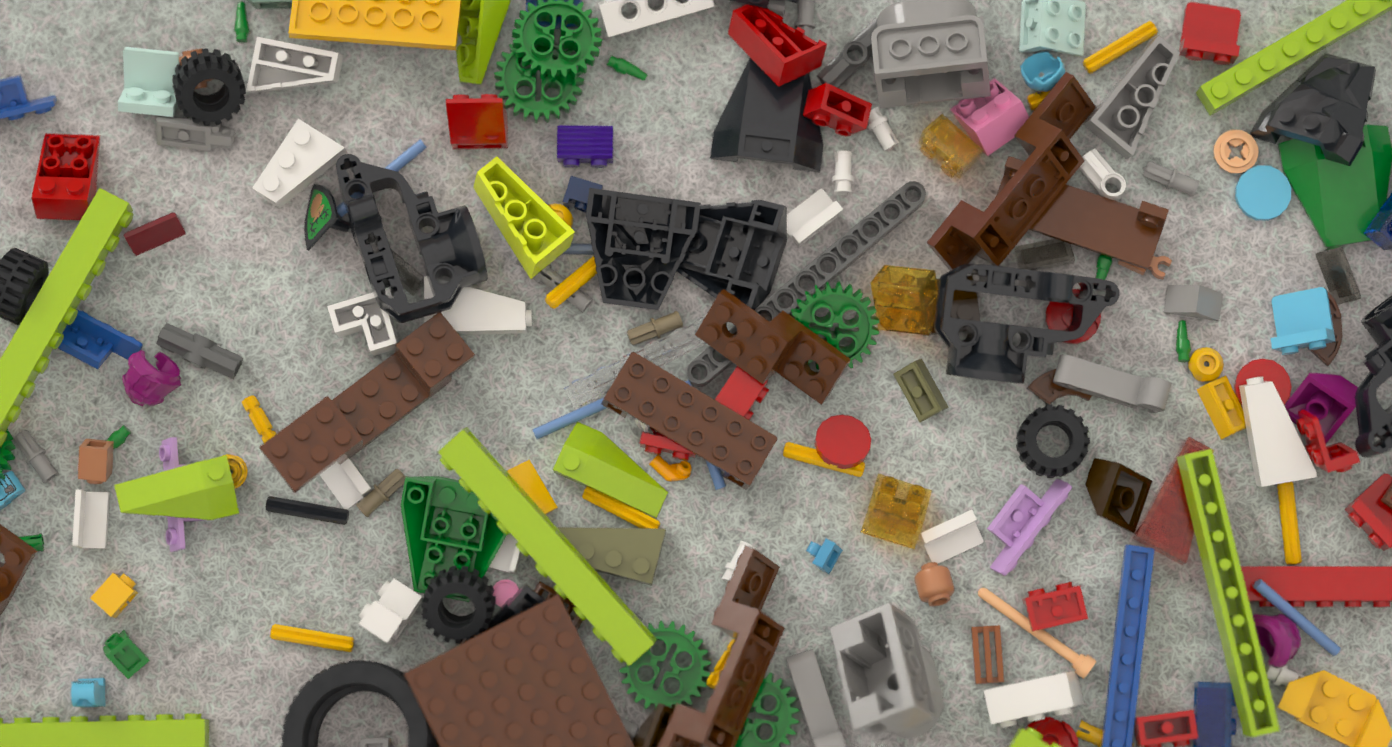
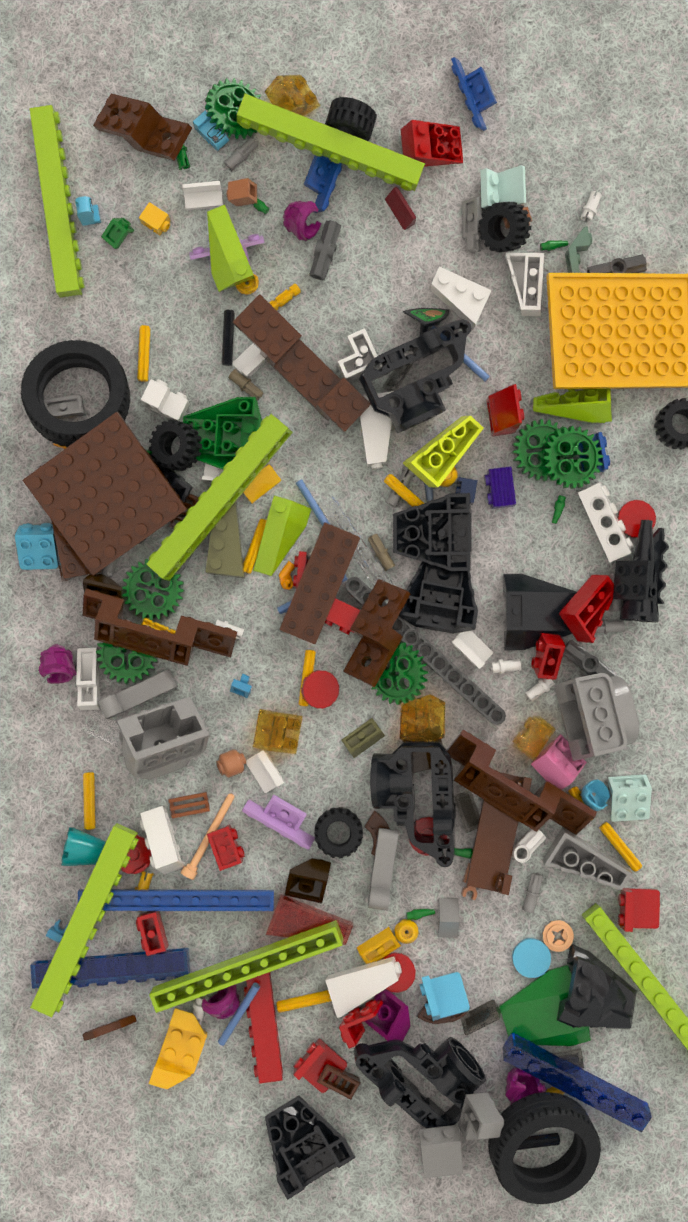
camera: 75 degrees right, 5 degrees up
(504, 590) = (191, 476): bright pink piece -> none

